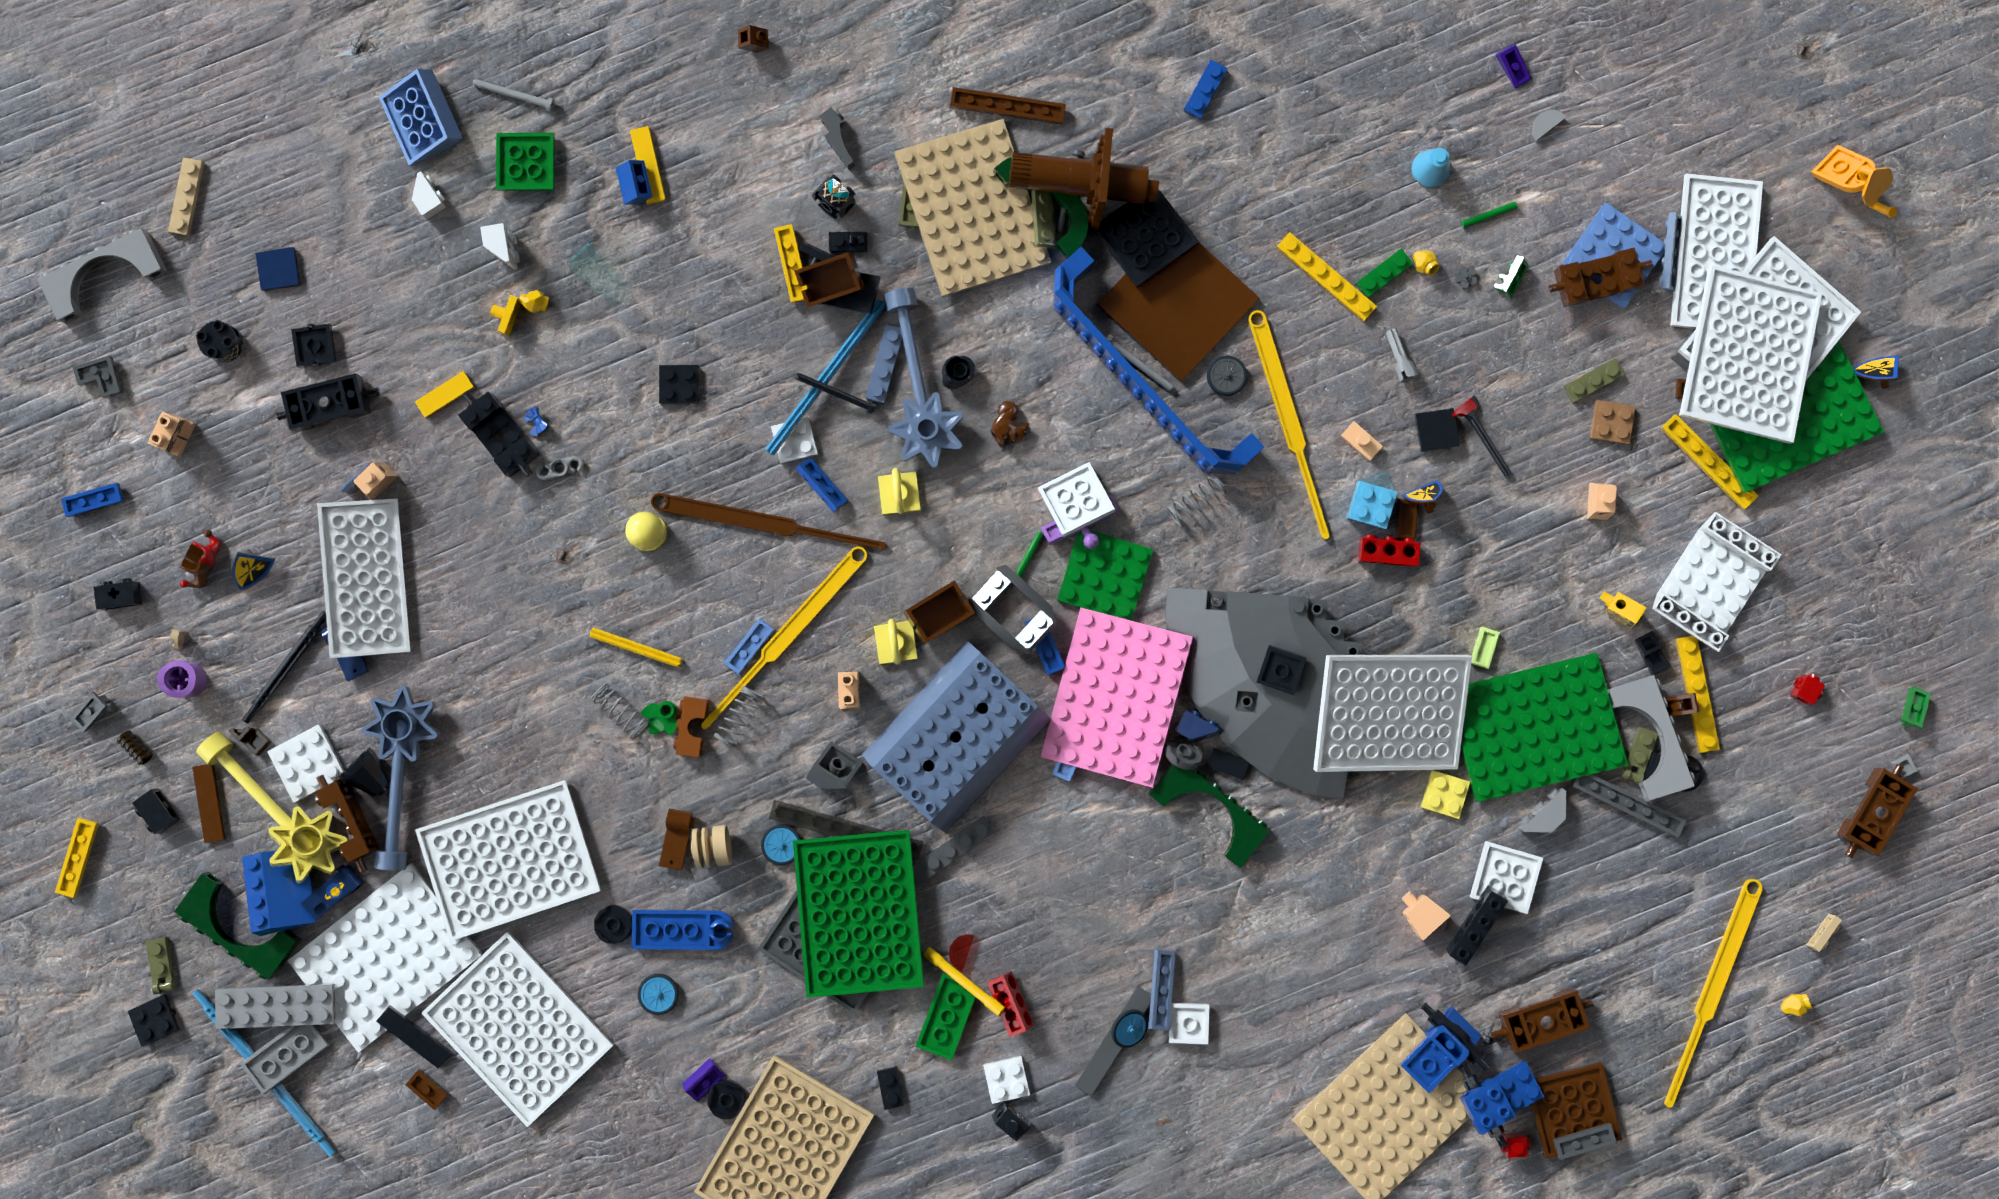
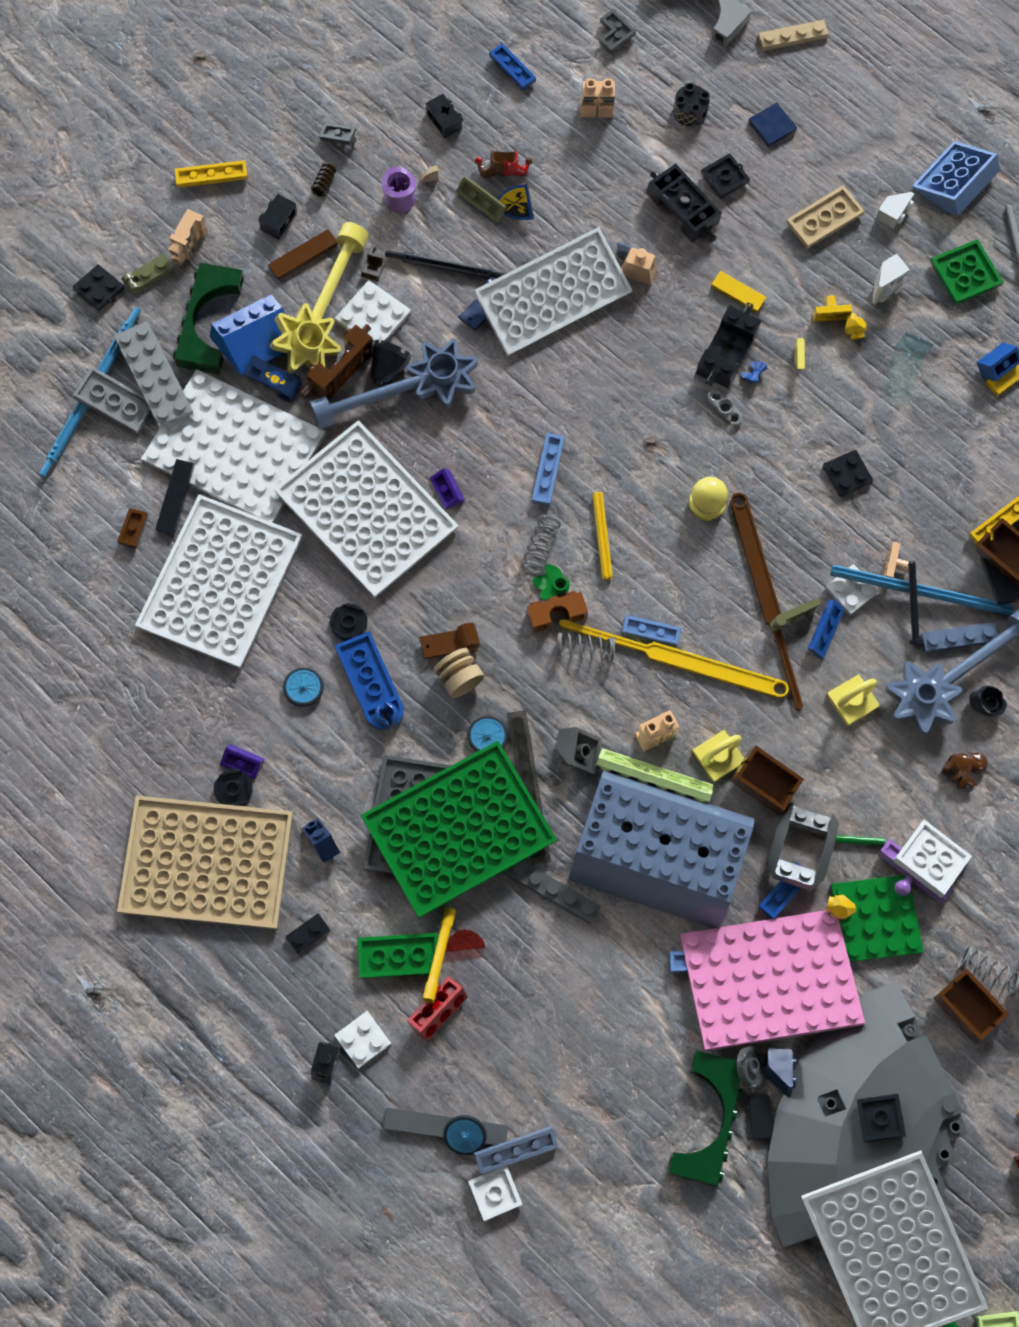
camera: 55 degrees right, 15 degrees down
(139, 913) = (186, 236): none -> light nougat hips
(228, 600) = (481, 199): none -> olive plate
(403, 269) = (825, 217): none -> tan plate
(521, 772) = (447, 488): none -> dark purple slope
(539, 370) = (800, 353): none -> light yellow tile
(546, 668) = (548, 469): none -> medium blue plate
(787, 388) = (893, 562): none -> light nougat tile
(796, 508) = (795, 614): none -> olive plate
(811, 1041) = (321, 840): none -> dark blue slope
(888, 712) = (650, 773): none -> yellowish green plate
(1083, 605) = (840, 907): none -> yellow rock
(1218, 534) = (971, 1006): none -> reddish brown piece

